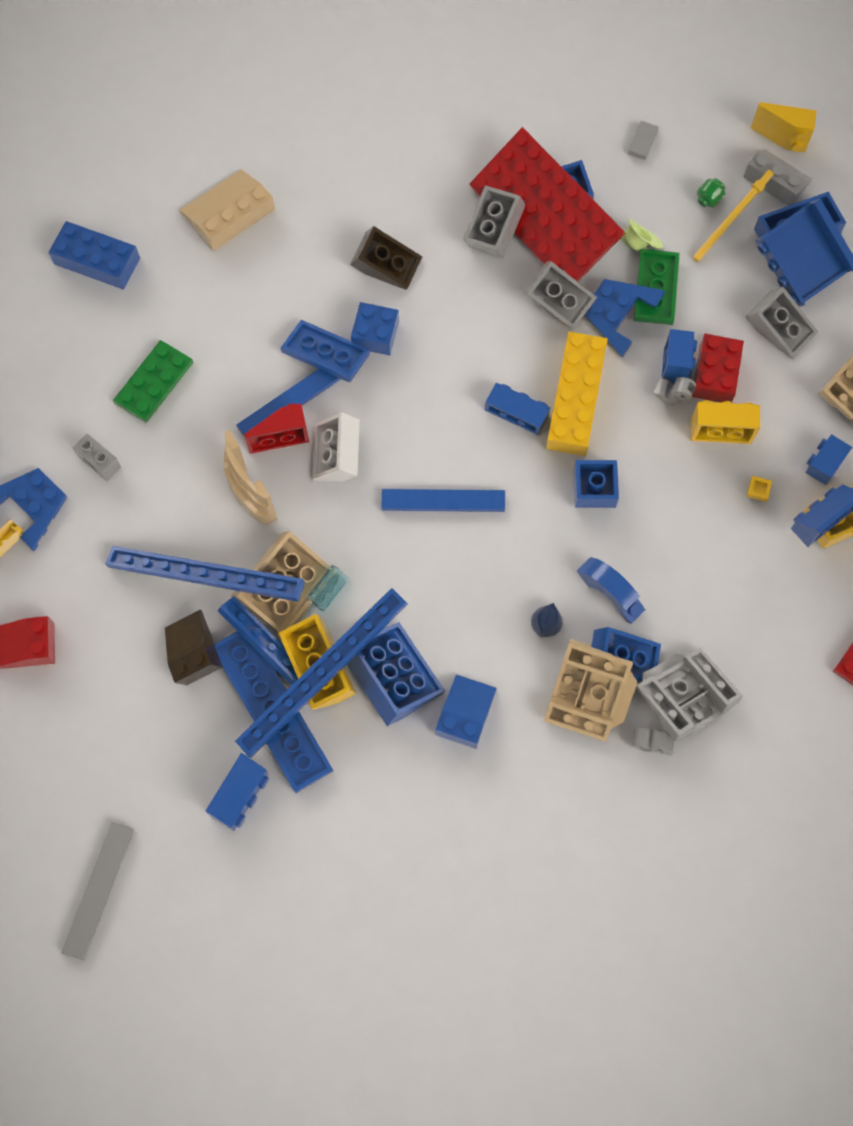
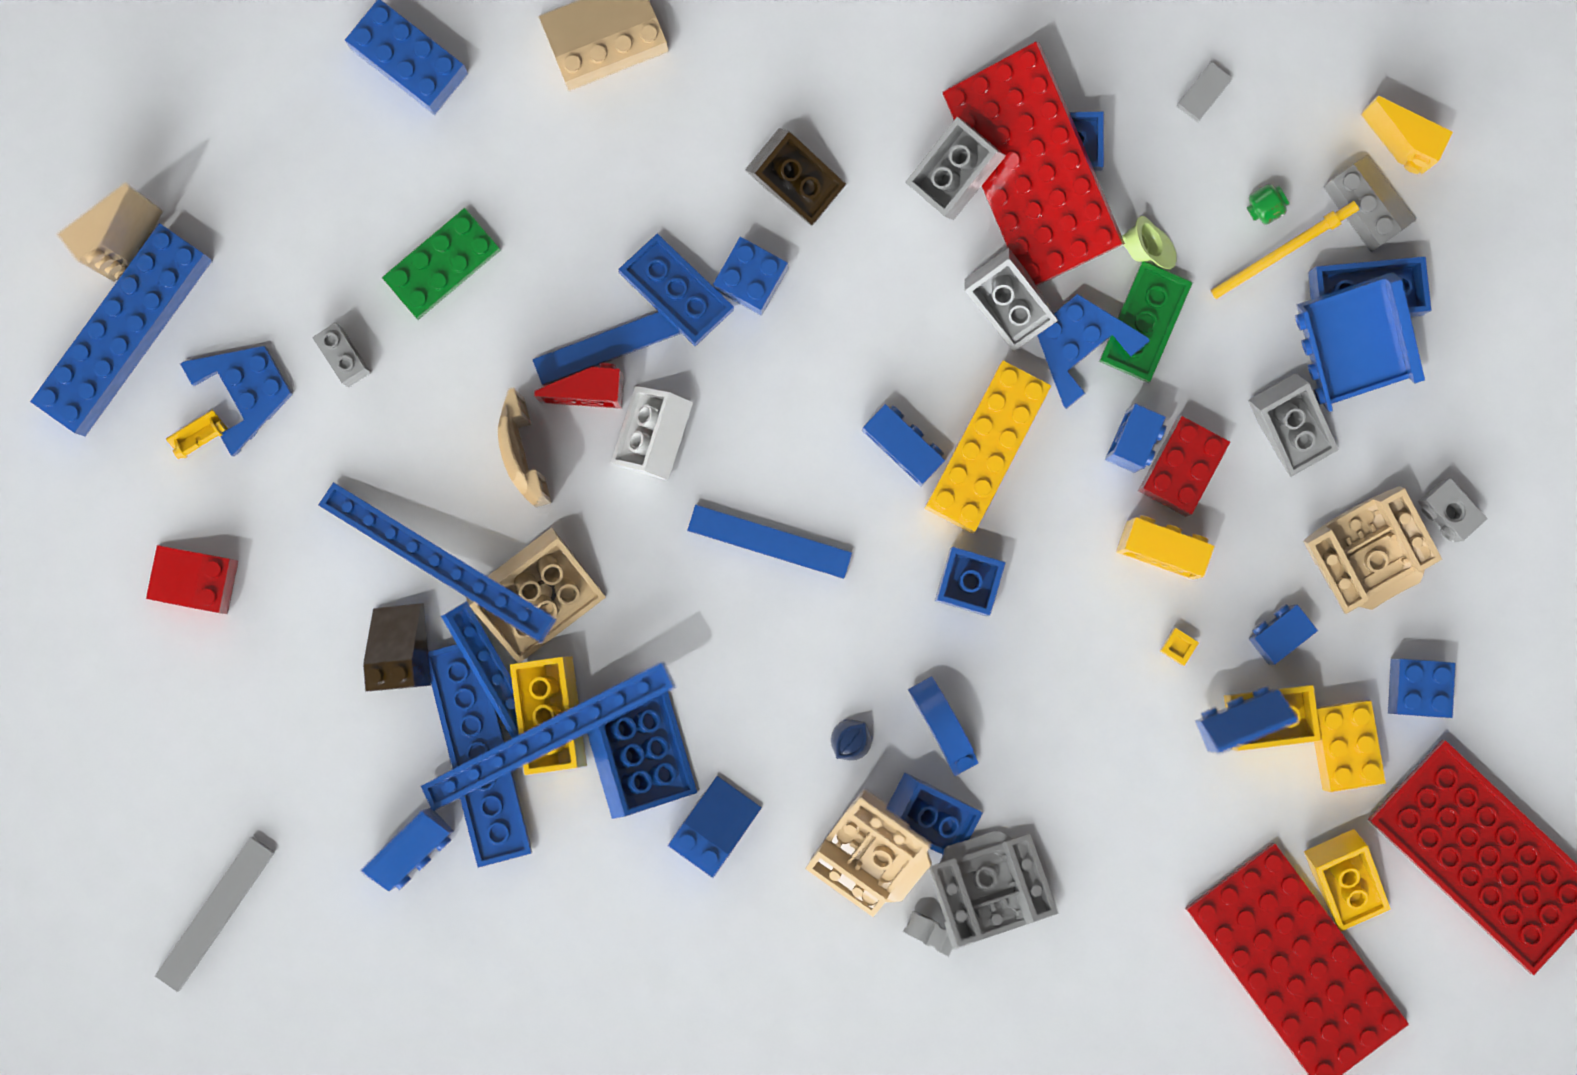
camera: 15 degrees right, 15 degrees up
(327, 588) = (589, 619): clear light blue plate -> none
(670, 393) = (1115, 484): light grey leg -> none

